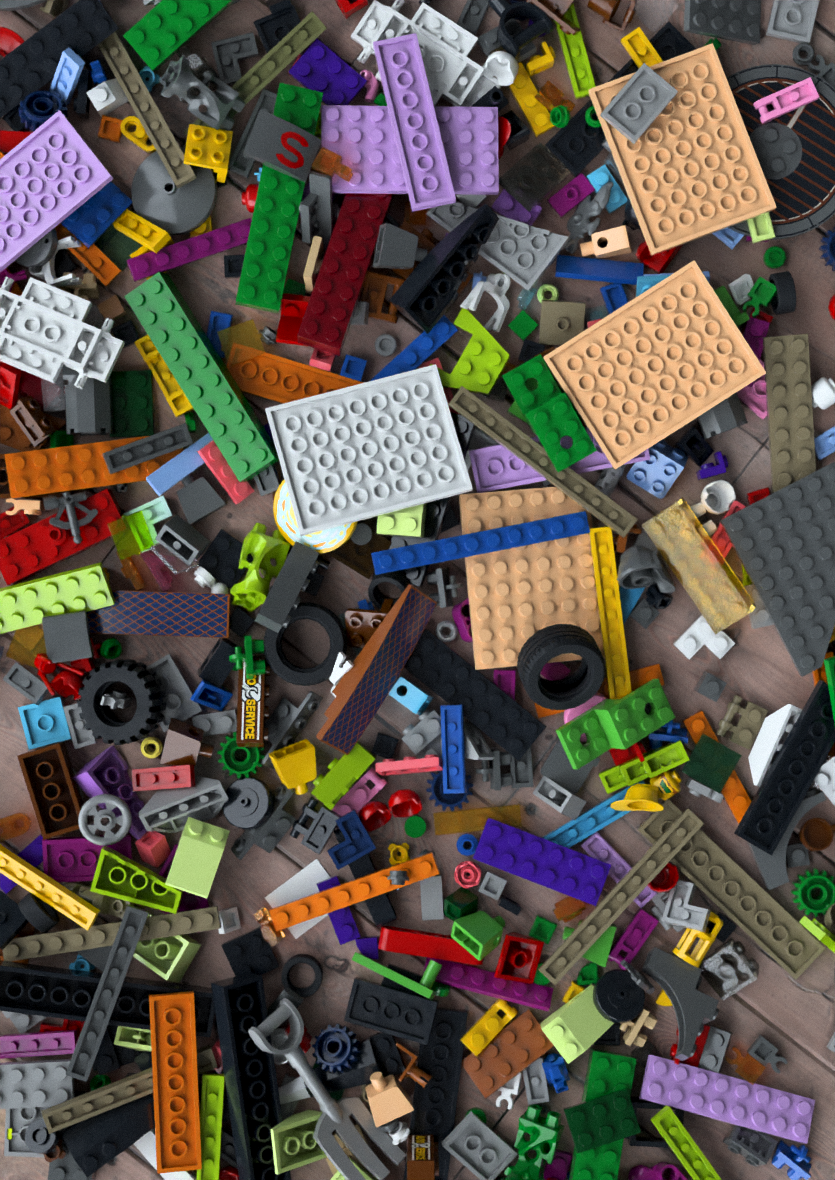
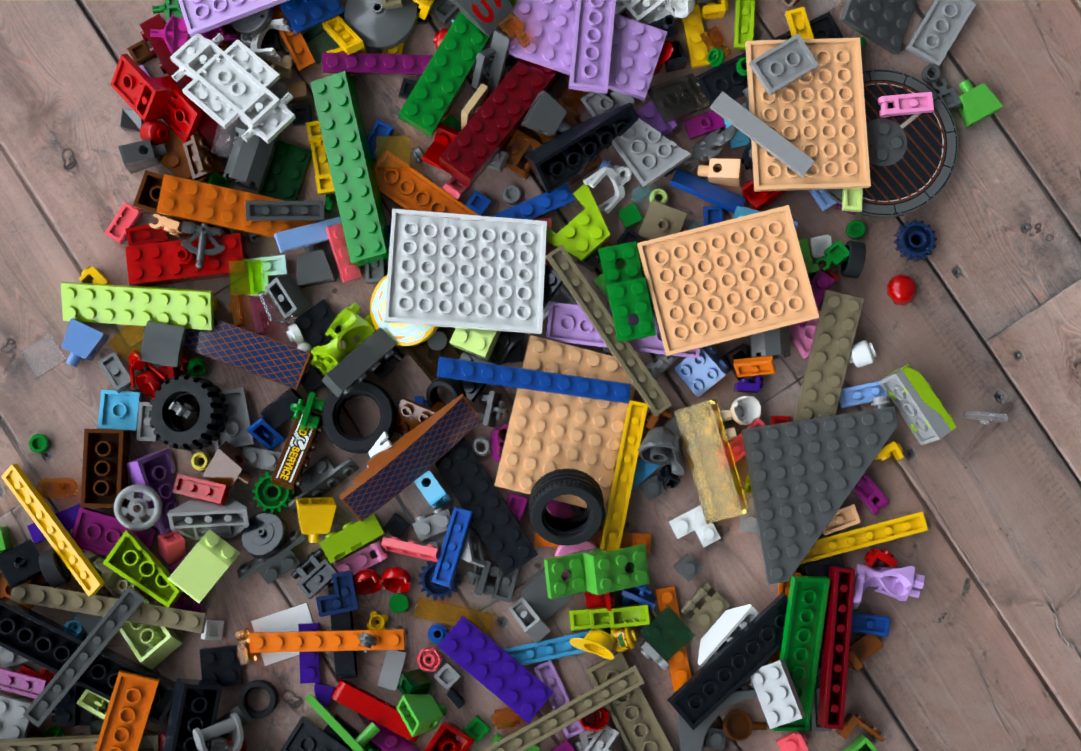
camera: 15 degrees right, 5 degrees down
(640, 190) = (762, 134): none -> light grey tile
(713, 447) = (754, 366): none -> orange plate

